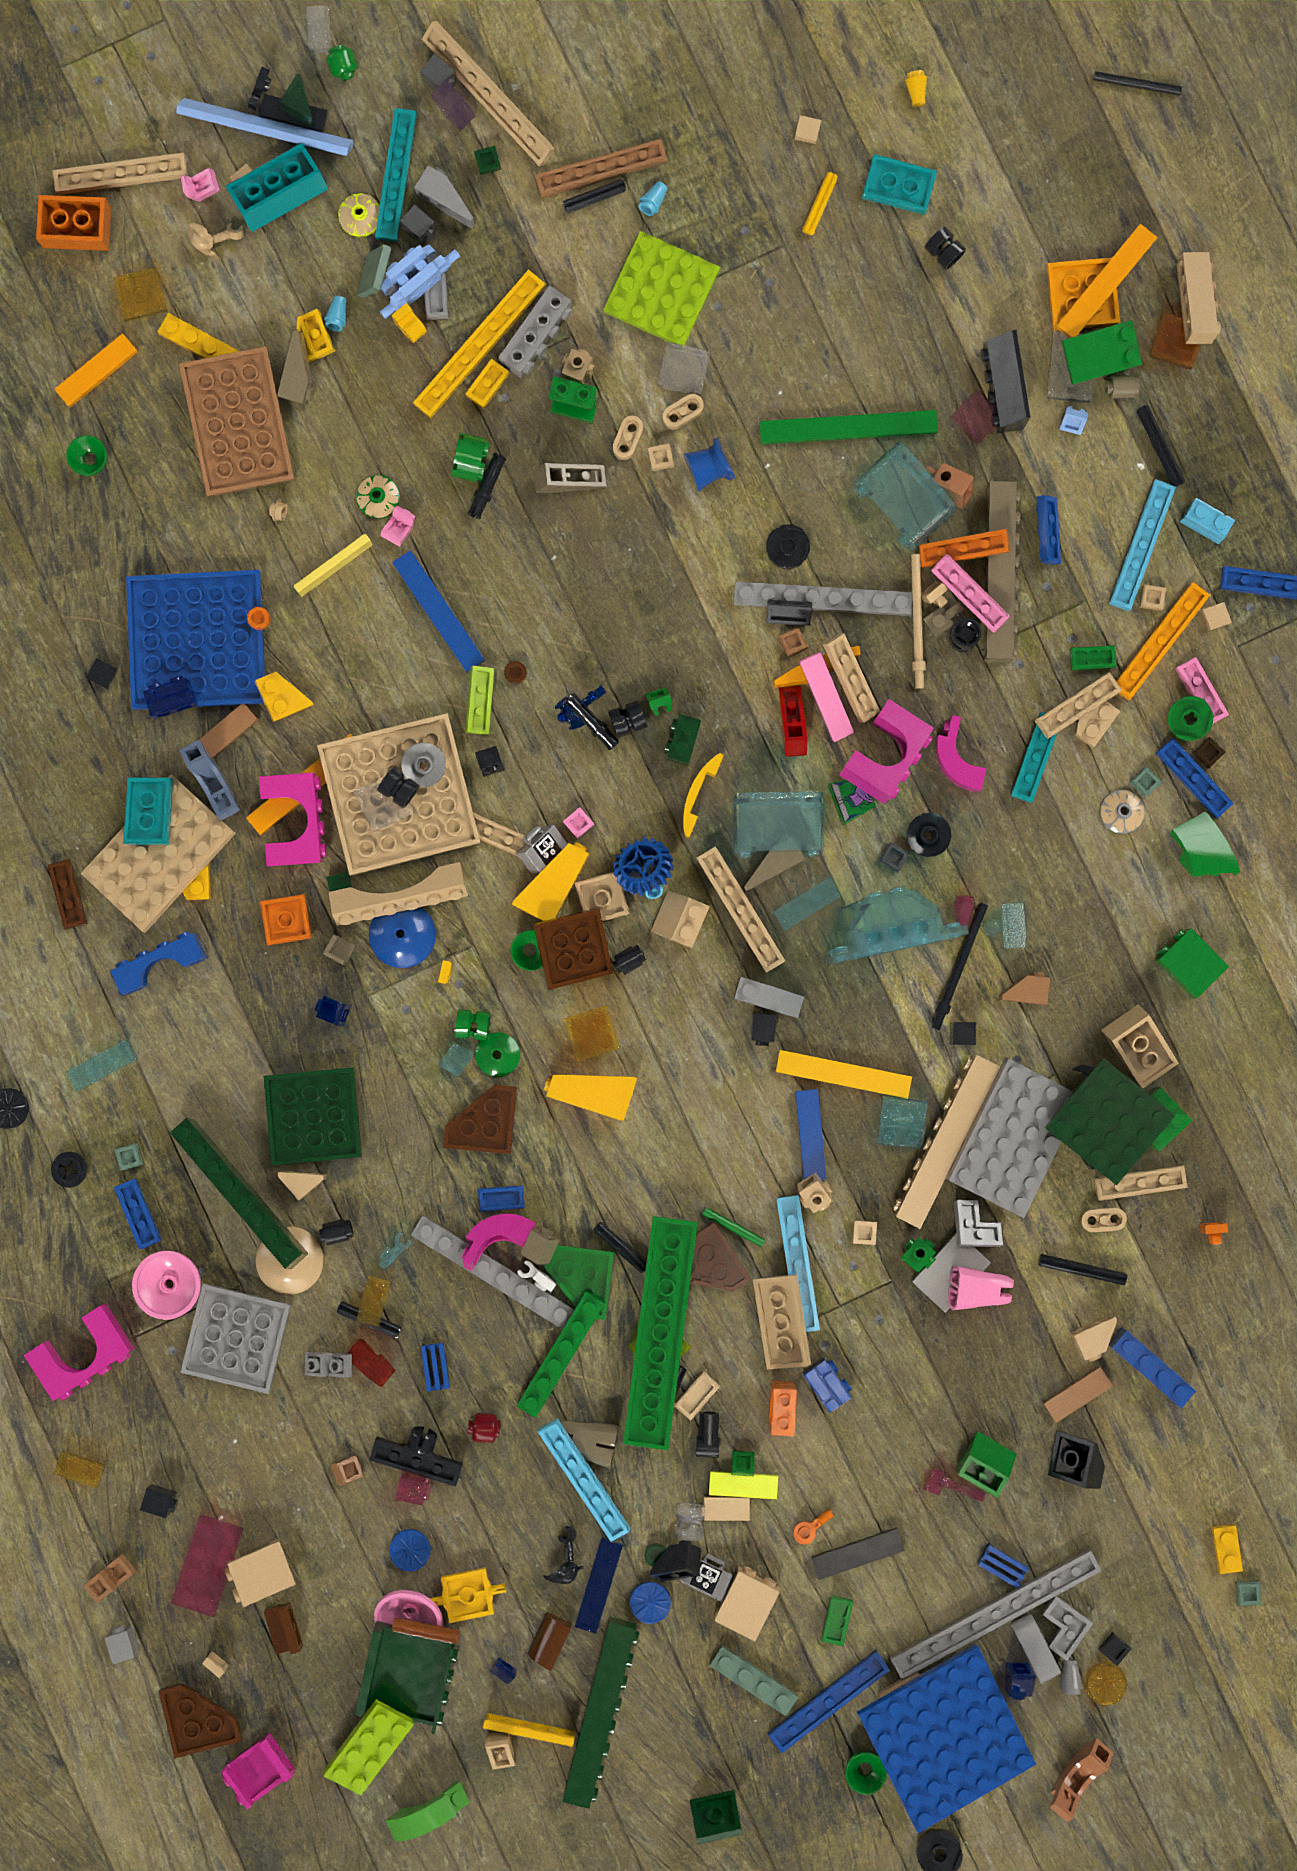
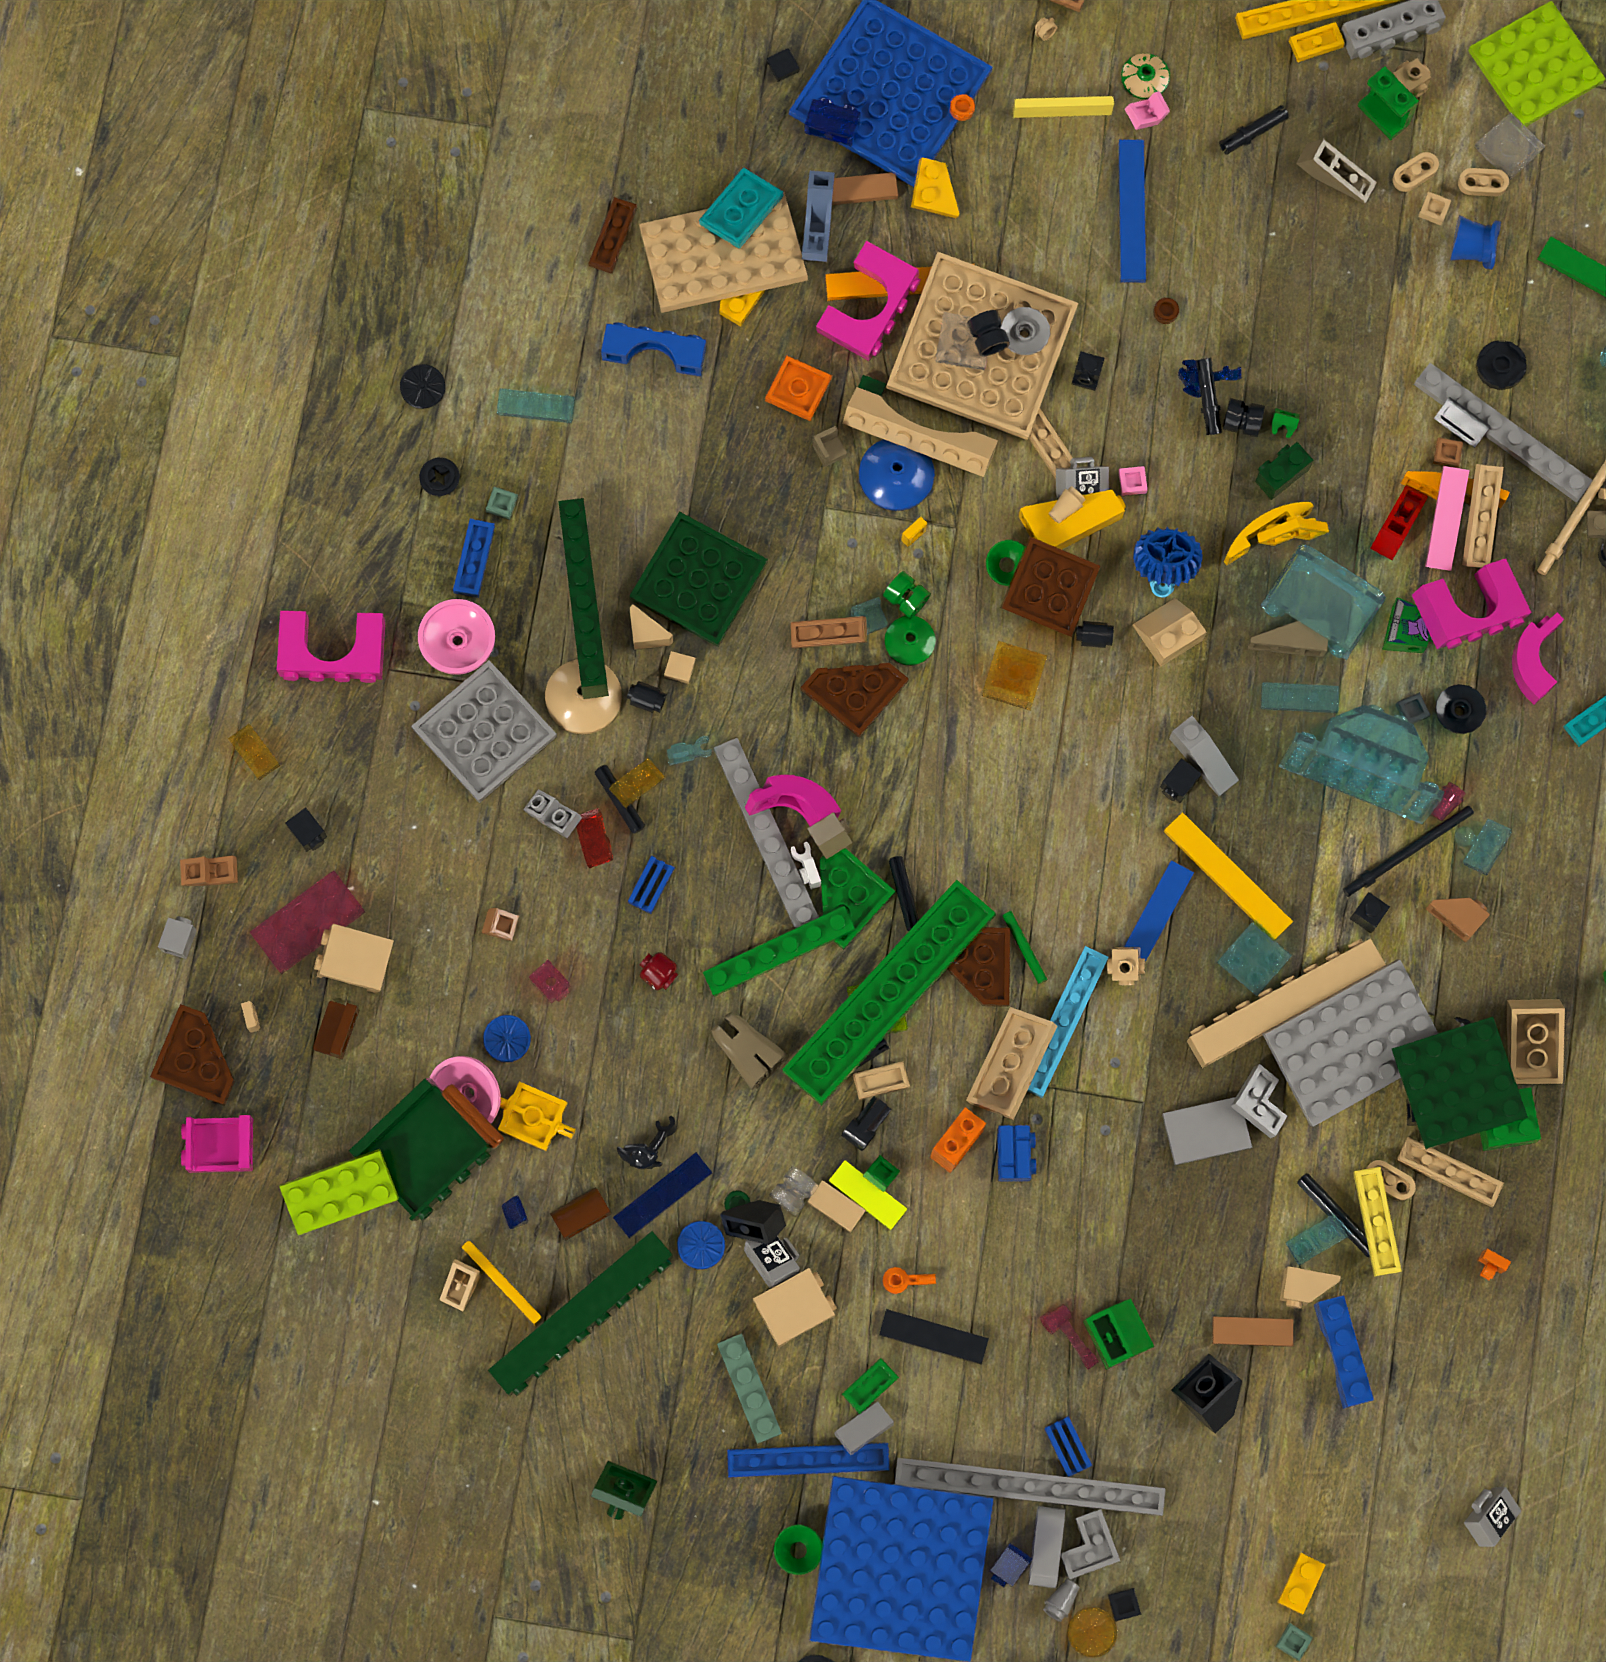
camera: 30 degrees right, 10 degrees down
(332, 1010) = (786, 496): clear blue slope -> none
(344, 1191) = (679, 667): none -> tan tile
(417, 1457) = (576, 954): black plate -> none
(421, 1819) = (350, 1292): bright green arch -> none
(435, 1093) = (828, 632): none -> medium nougat tile
(468, 457) = (1256, 93): green brick -> none
(479, 700) = (1115, 312): lime plate -> none
(501, 1198) = (822, 772): blue tile -> none
(544, 879) = (1067, 504): none -> tan cone
(583, 1479) = (720, 1082): medium azure tile -> none
(595, 1093) = (978, 733): yellow slope -> none
(603, 893) = (1115, 559): tan plate -> none
(720, 781) = (1293, 528): none -> yellow plate
(740, 909) = (1232, 659): tan plate -> none
(853, 1654) = (864, 1428): none -> light grey tile
(864, 1232) = (1148, 1035): tan plate -> none
(910, 1255) = (1187, 1089): green brick -> none
(977, 1288) = (1223, 1160): bright pink piece -> none
(1079, 1298) = (1316, 1239): none -> clear light blue slope
(1114, 1258) = (1377, 1221): none -> light yellow tile

